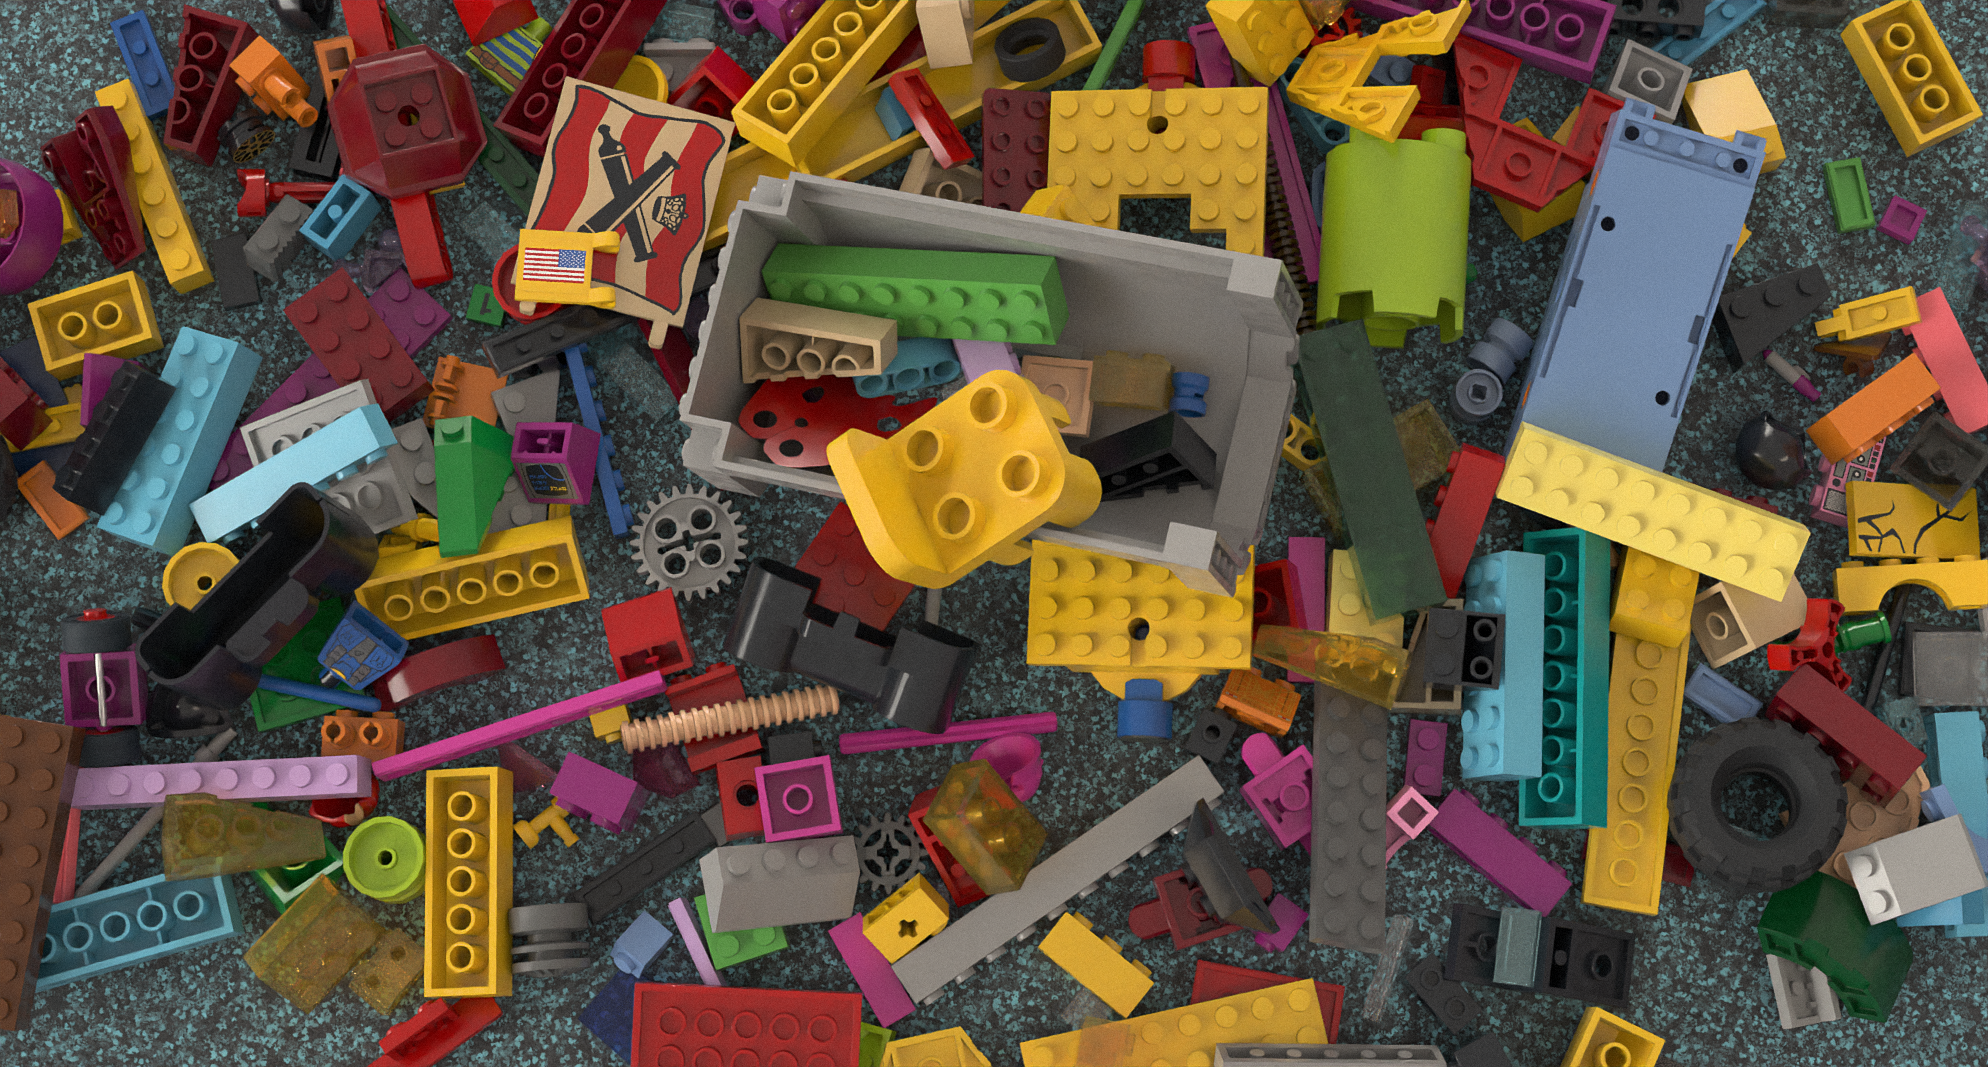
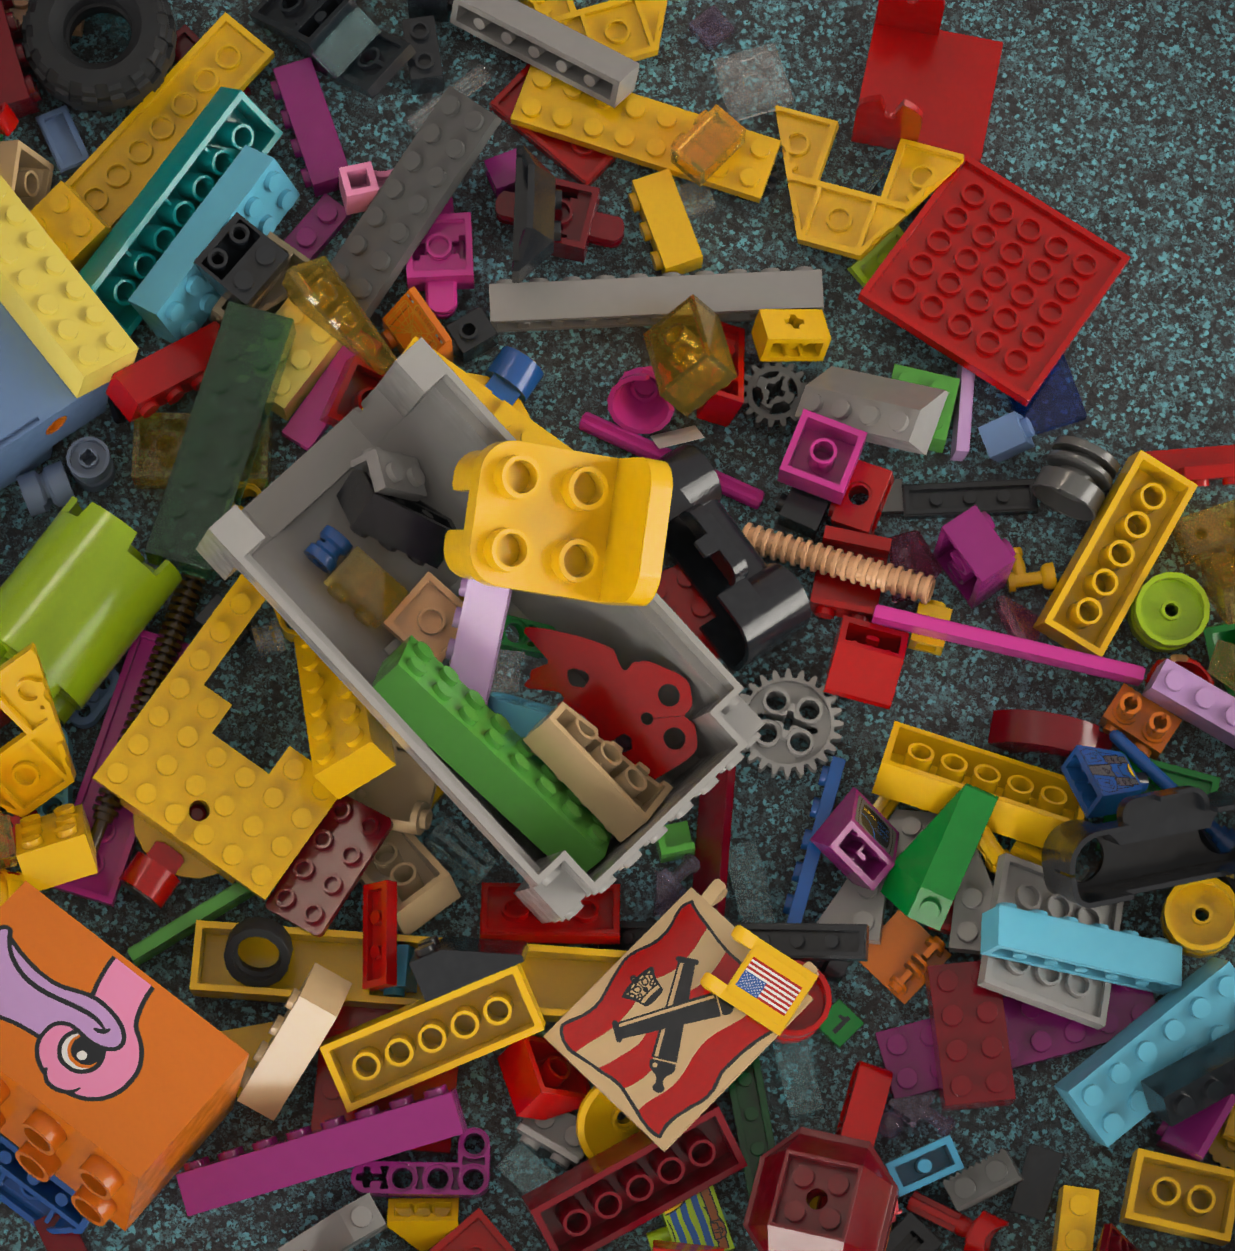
camera: 150 degrees left, 5 degrees down
(841, 131) = (459, 961): none -> black slope
(871, 972) = (840, 316): dark pink tile -> none
(952, 747) = (677, 436): none -> white sticker
(1170, 487) = (392, 473): none -> light grey bracket

